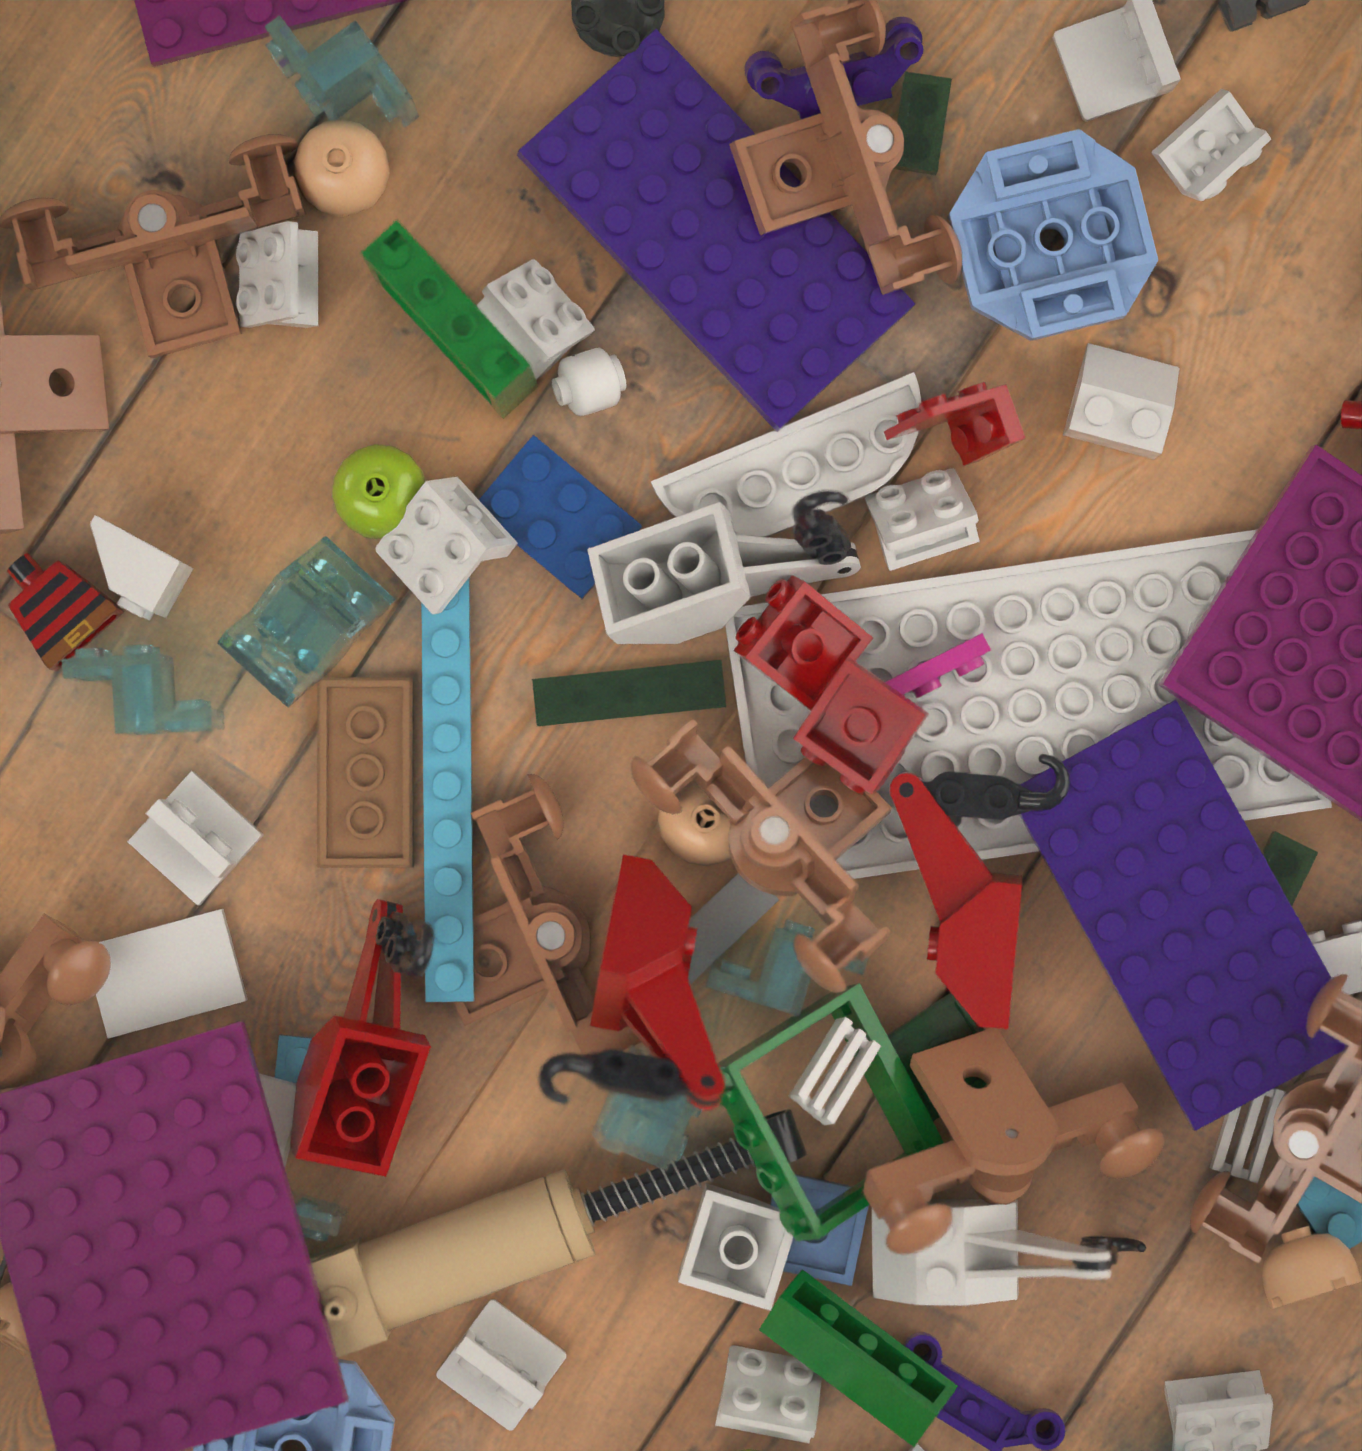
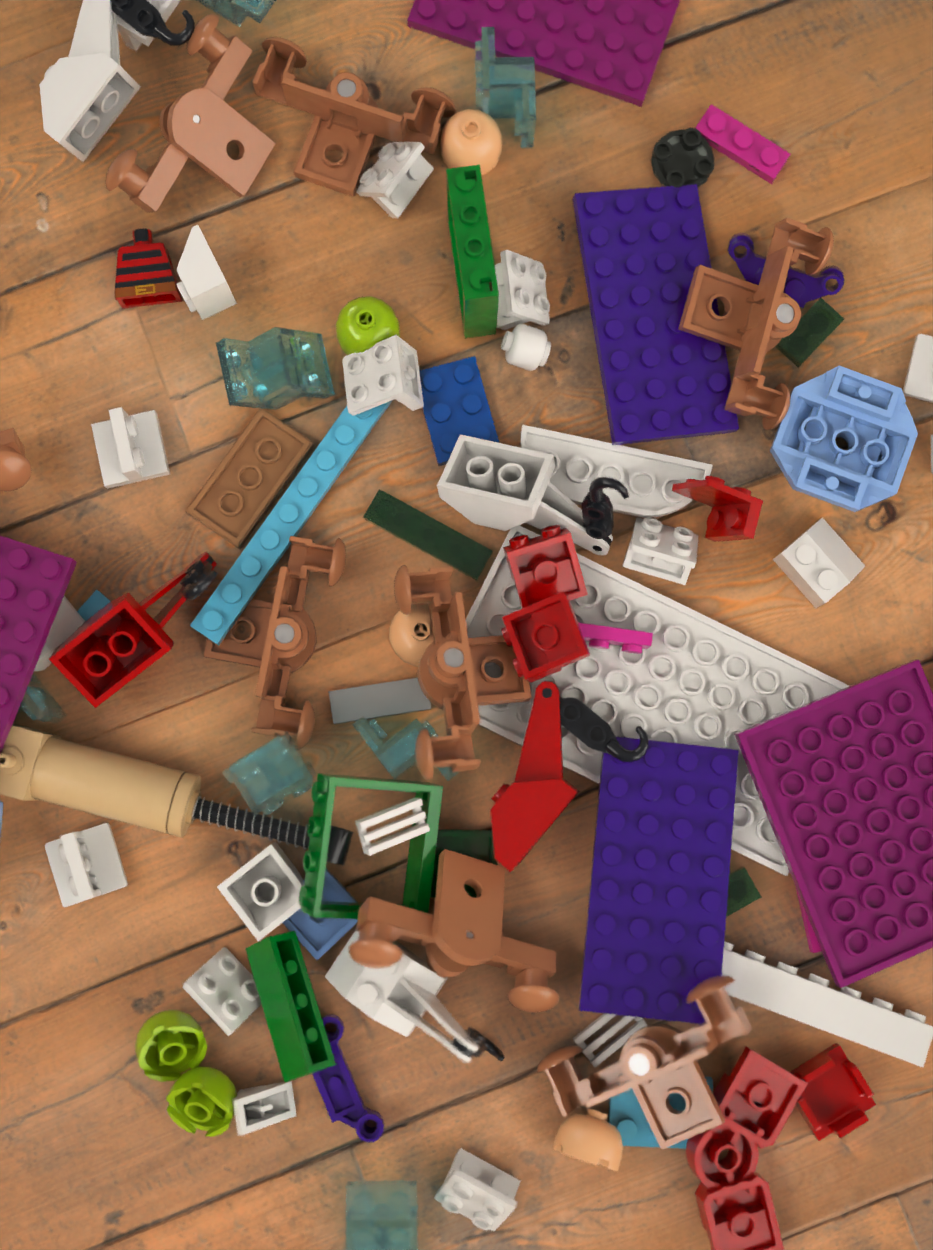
camera: 35 degrees right, 5 degrees down
(143, 691) = (156, 344): clear light blue bracket -> none
(170, 974) = (60, 513): white tile -> none
(648, 989) = (316, 699): red slope -> none

